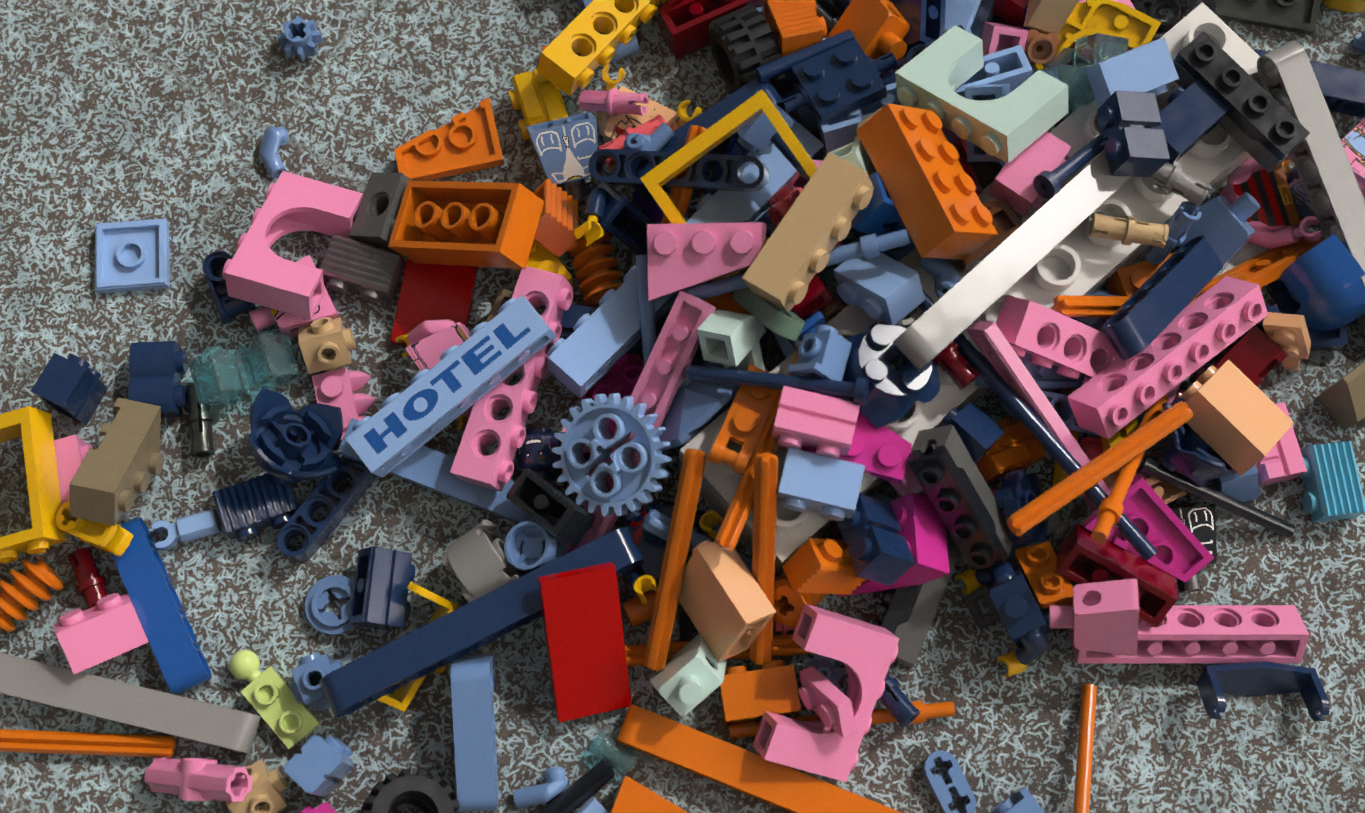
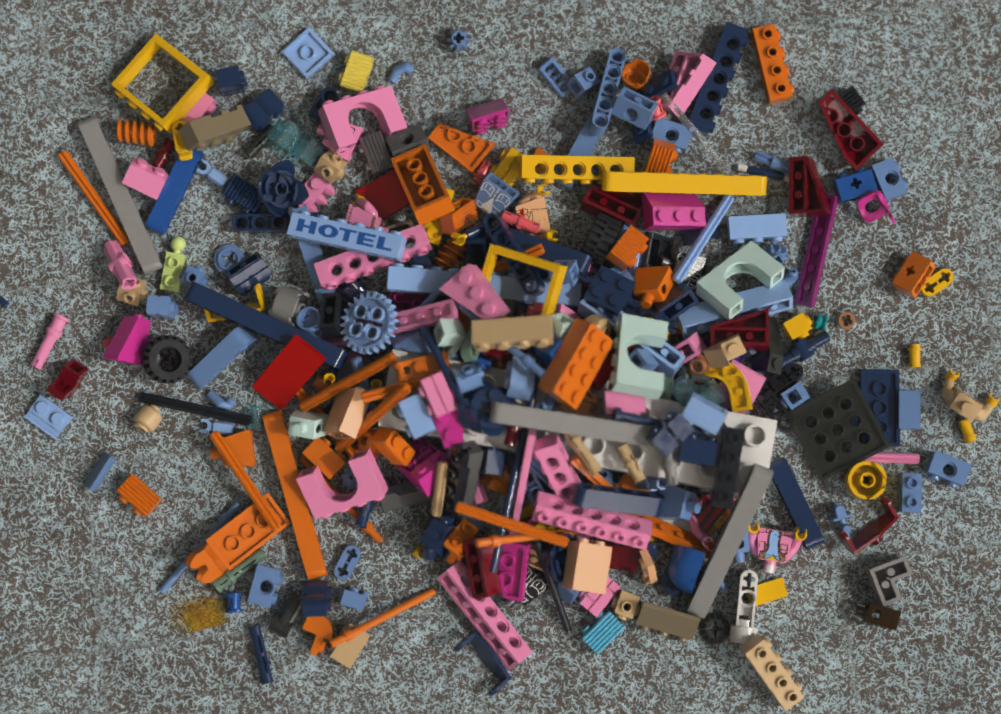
camera: 50 degrees right, 10 degrees up
(220, 206) = (356, 72): none -> light yellow brick
(443, 73) = (487, 116): none -> dark pink slope
(517, 154) = (482, 172): none -> coral pin
(613, 102) = (531, 200): bright pink axle -> none
(652, 142) = (520, 231): medium blue arm -> none
(785, 63) = (622, 271): dark blue bar -> none
(827, 702) = (336, 490): bright pink plate -> none
(875, 542) = (409, 458): dark blue piece -> none
(951, 544) = (439, 488): none -> tan axle
(1016, 493) = (487, 501): dark blue plate -> none
(1094, 284) = (583, 452): none -> tan pin
(1101, 616) = (456, 571): bright pink torso -> none
(1316, 417) = (618, 605): none -> tan brick

